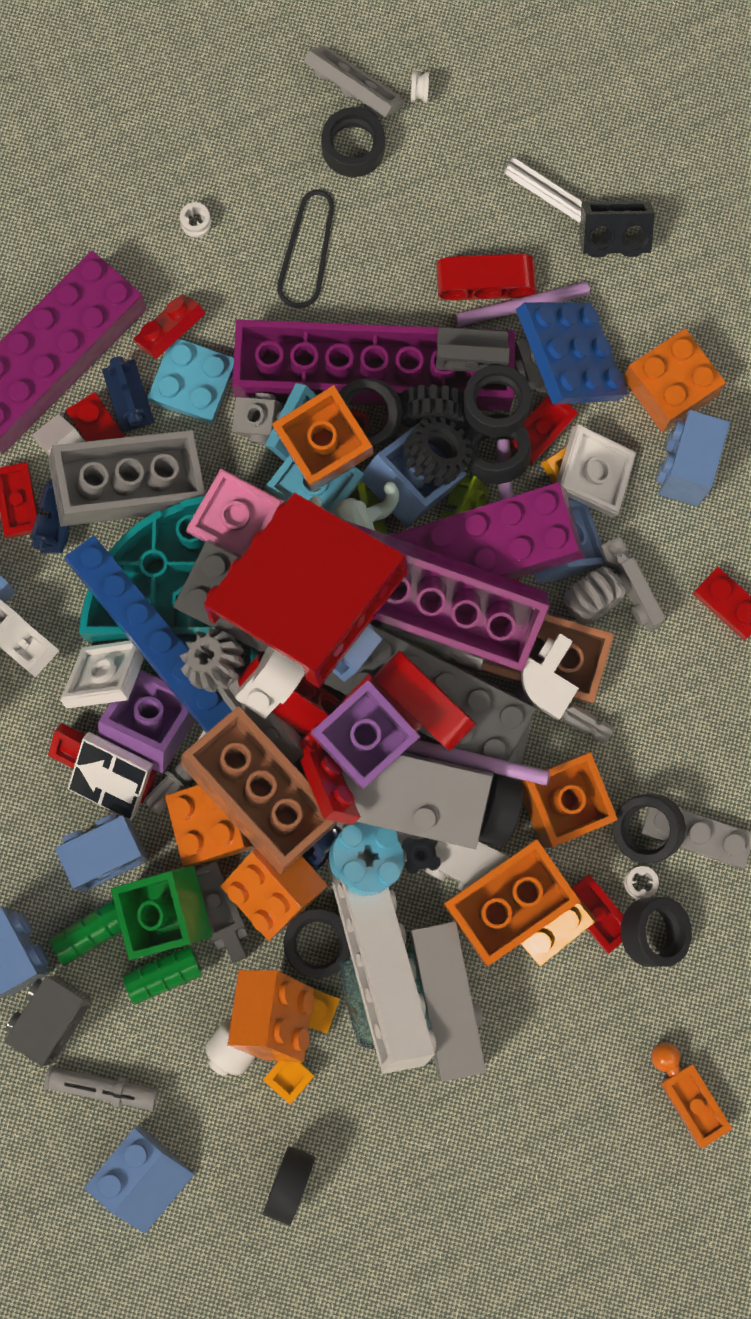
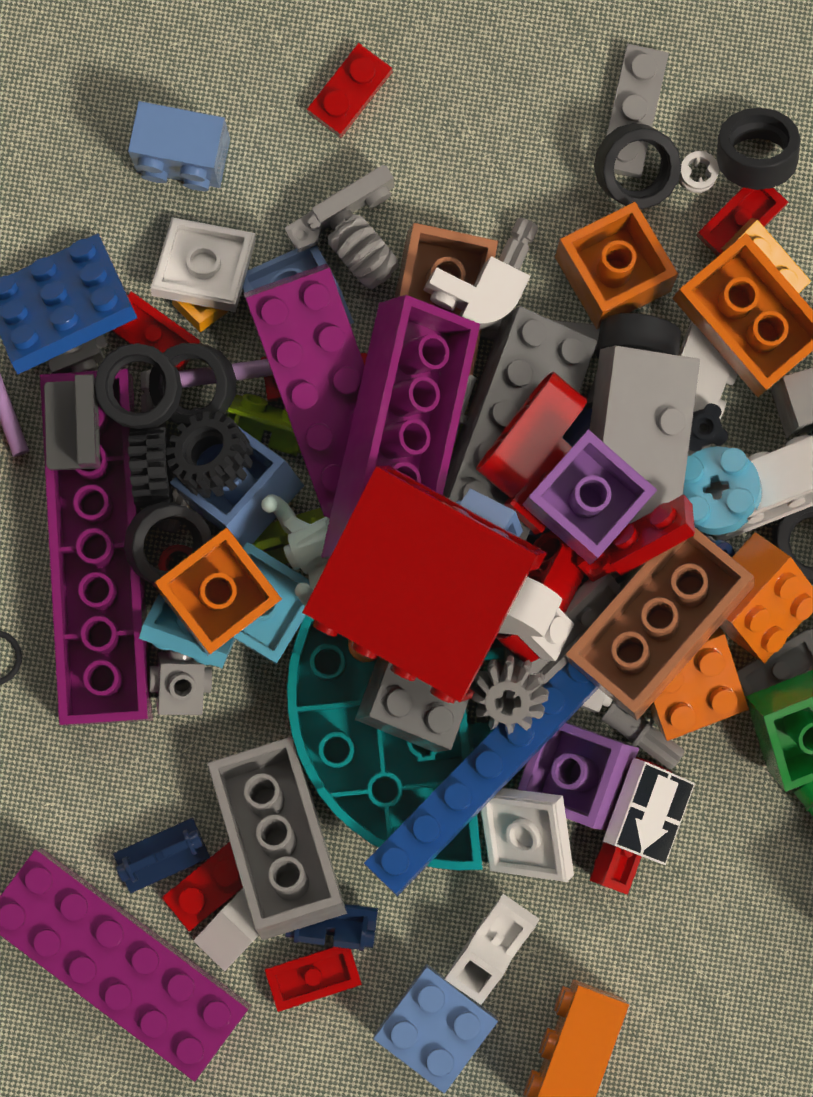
camera: 90 degrees left, 5 degrees up
(101, 853) = (744, 808): medium blue brick -> none
(168, 326) = (66, 813): red plate -> none
(192, 381) = (132, 777): medium azure plate -> none
(232, 512) = (316, 694): bright pink tile -> none
(480, 762) = (592, 357): lavender bar -> none
(673, 380) = (77, 177): orange brick -> none

